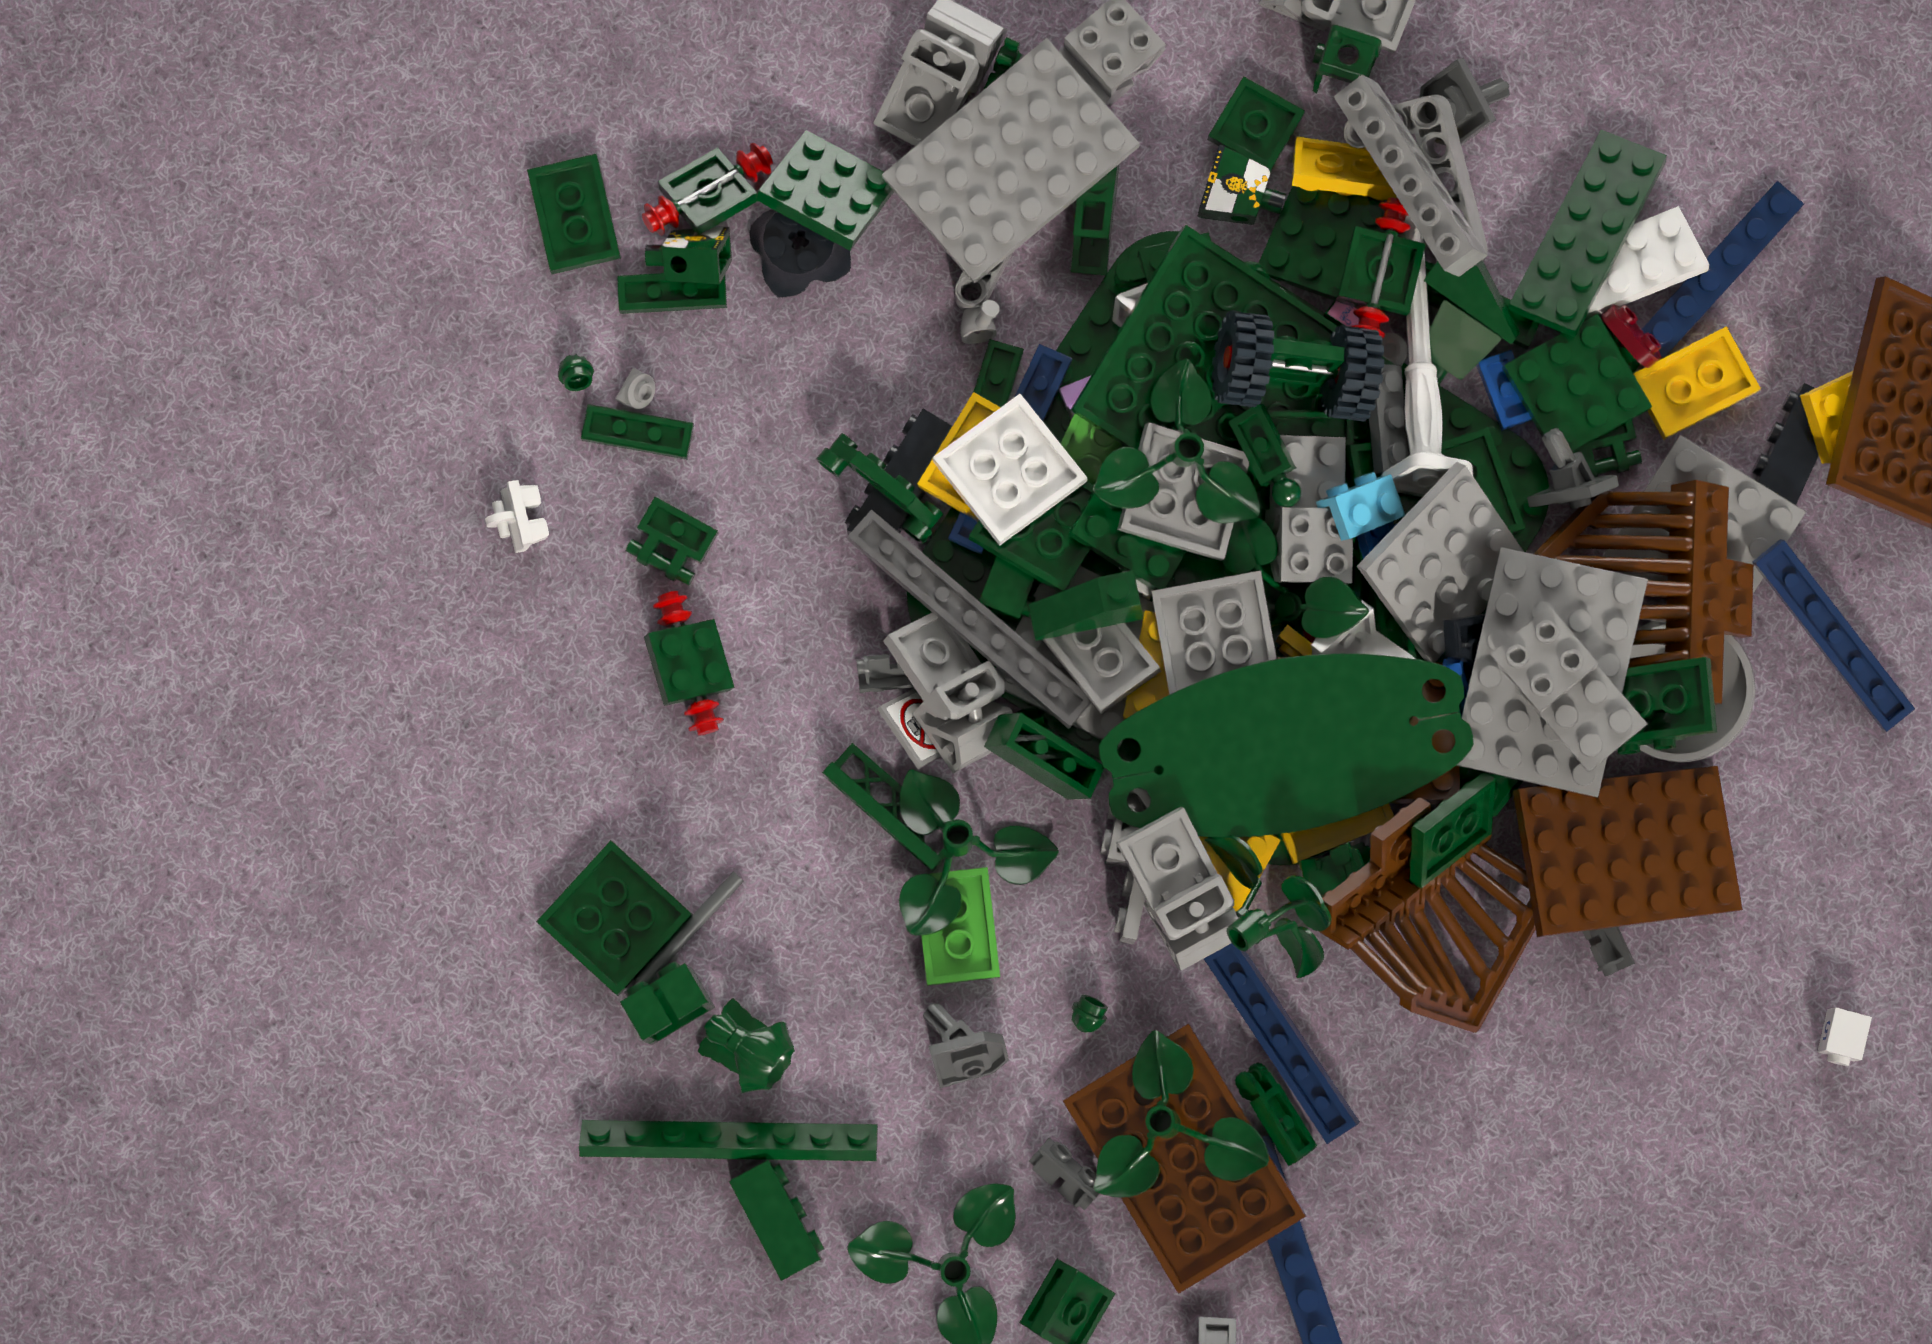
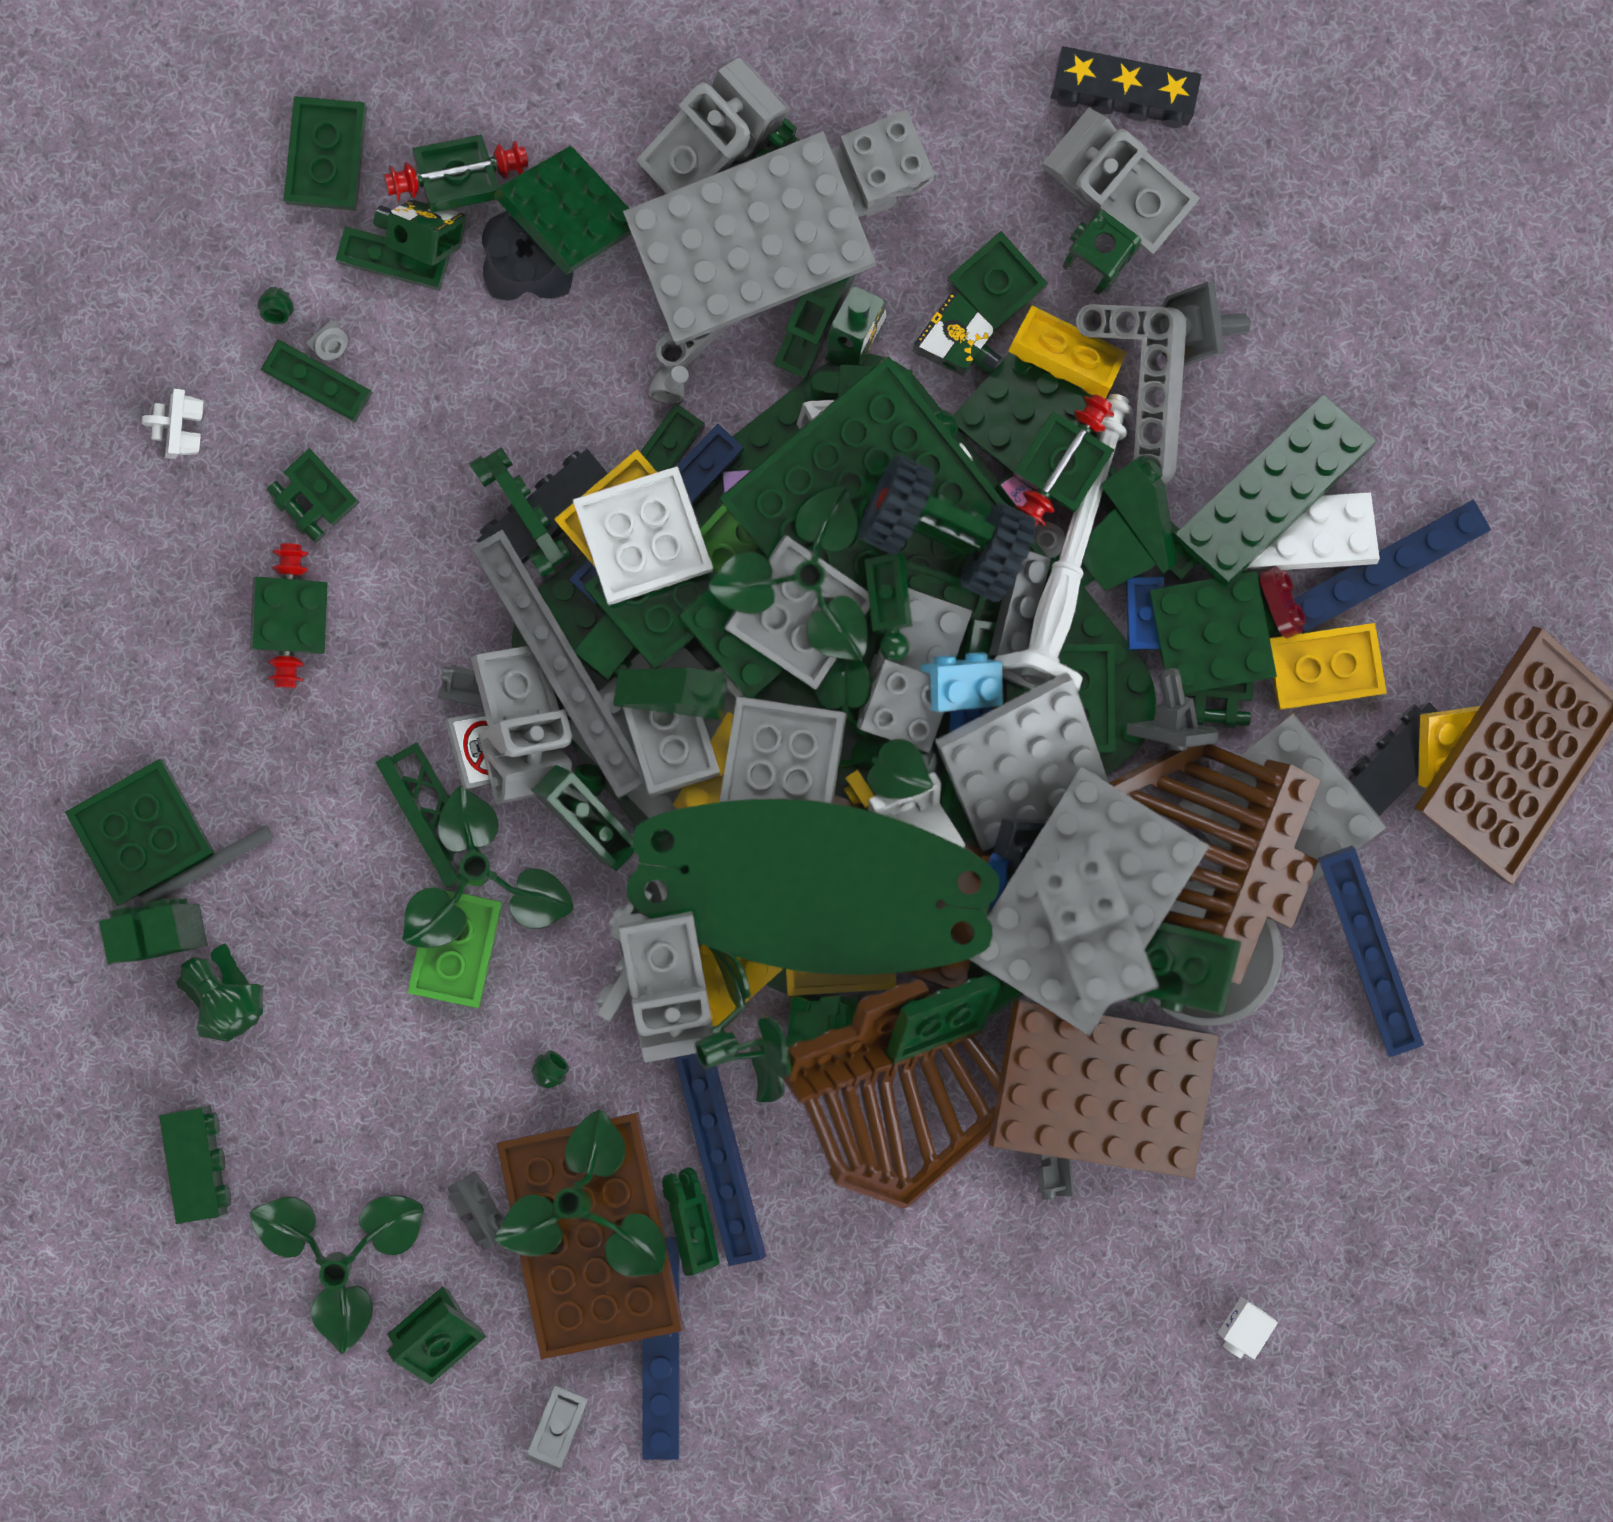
camera: 15 degrees right, 5 degrees up
(728, 1140) = (175, 1075): dark green plate -> none
(963, 1053) = (417, 1068): dark grey piece -> none
(1139, 204) = (860, 322): none -> dark green torso
(1410, 176) = (1121, 380): light grey brick -> none

